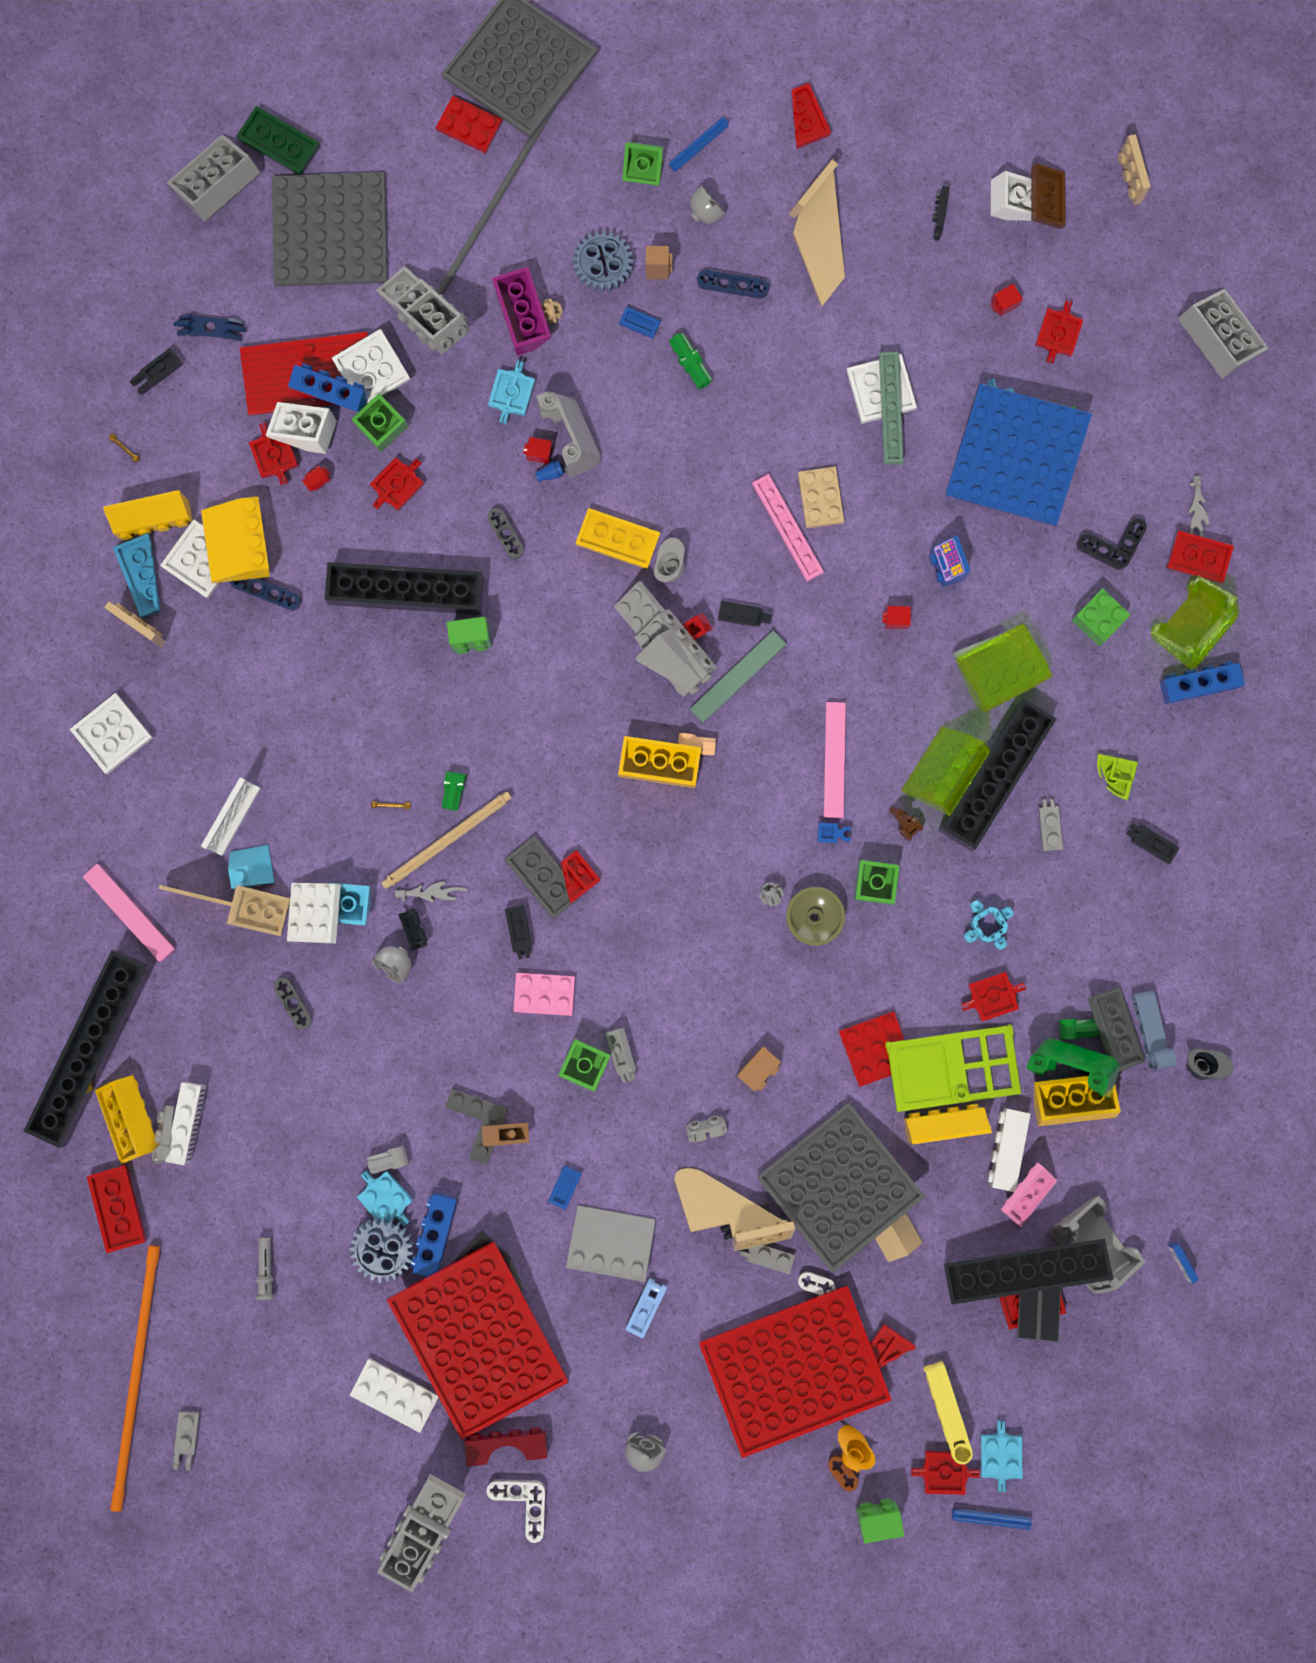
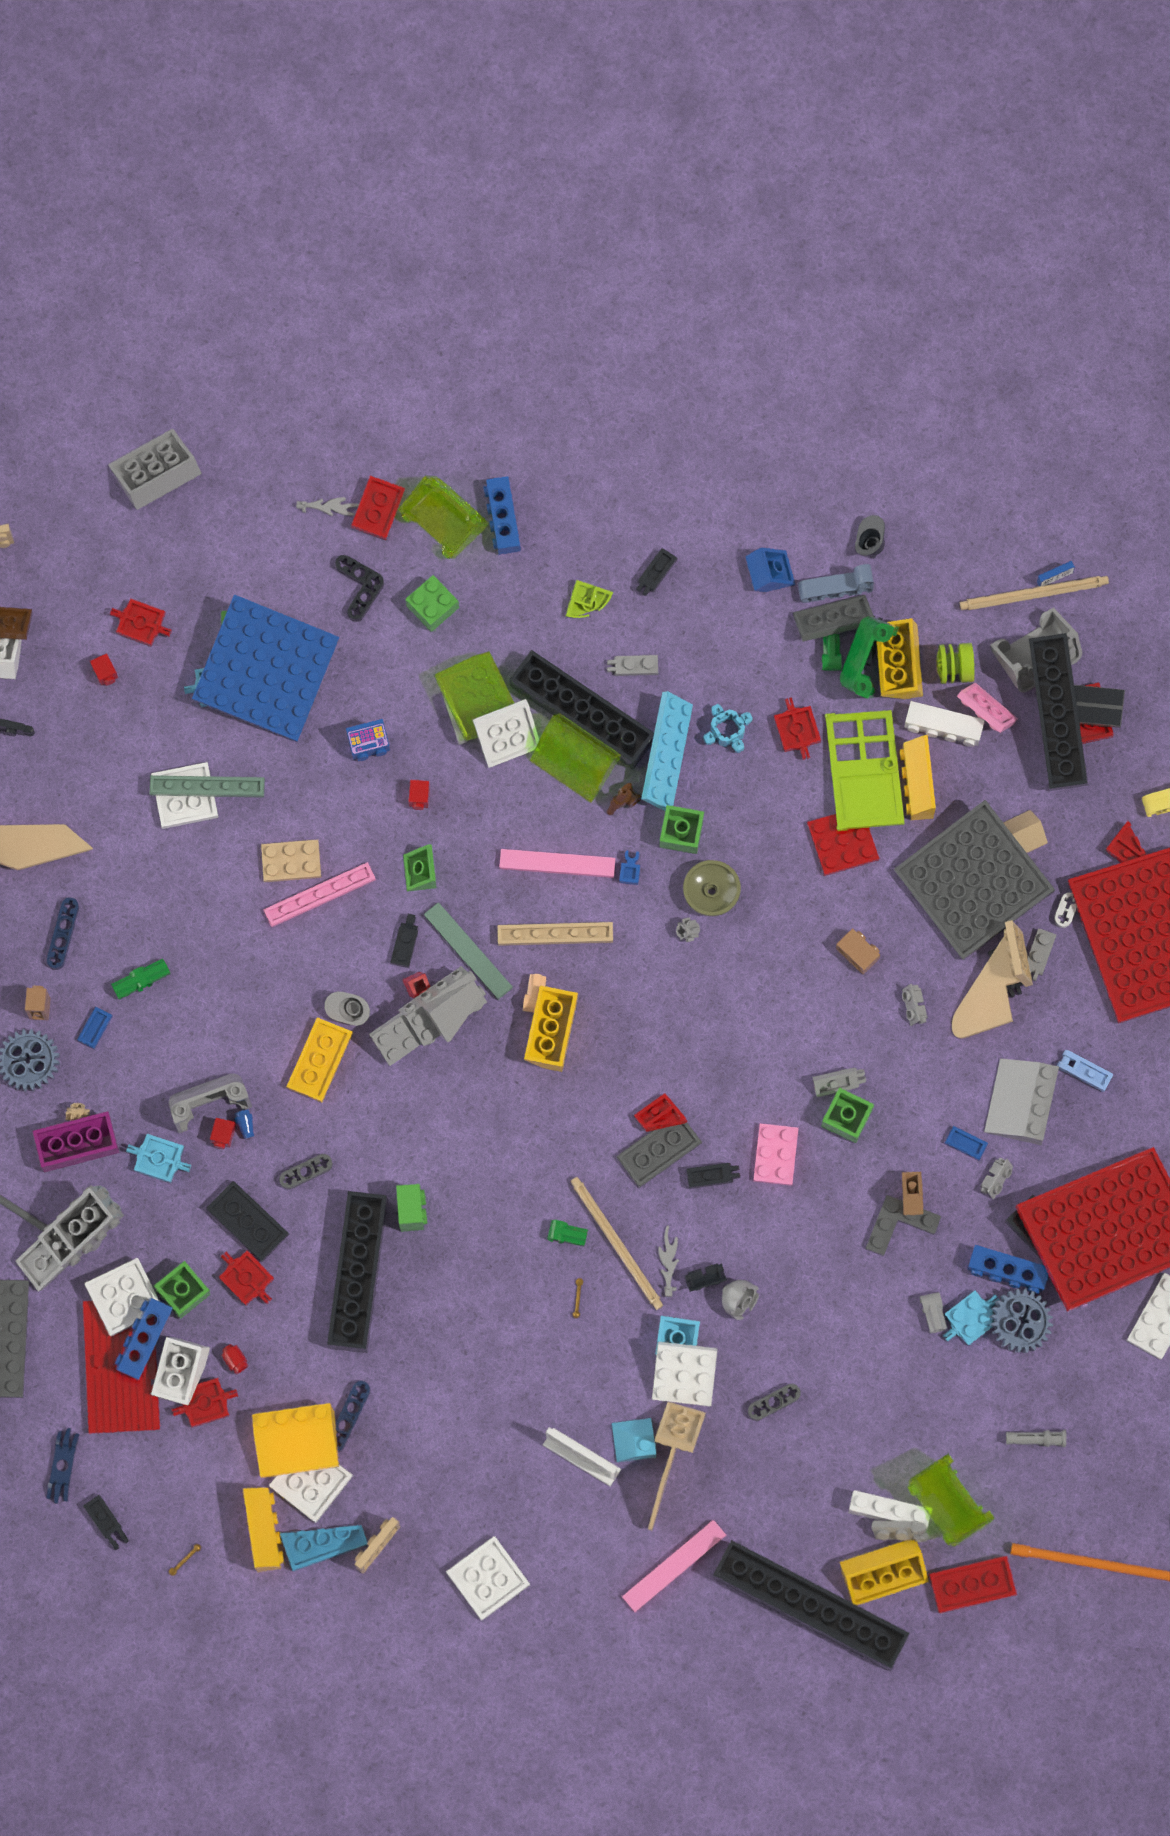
camera: 85 degrees left, 10 degrees down
(188, 1183) = (948, 1502): none -> clear neon green windscreen
(452, 481) = (247, 1221): none -> black plate
(522, 1217) = (993, 1185): none -> light grey hinge
(760, 762) = (555, 933): none -> tan plate
(819, 624) = (420, 869): none -> bright green slope
(958, 863) = (667, 751): none -> medium azure plate
(965, 698) = (506, 733): none -> white plate
(1075, 1161) = (956, 663): none -> lime wheel
(1160, 1239) = (1032, 593): none -> tan piece
(1164, 960) = (769, 569): none -> blue slope

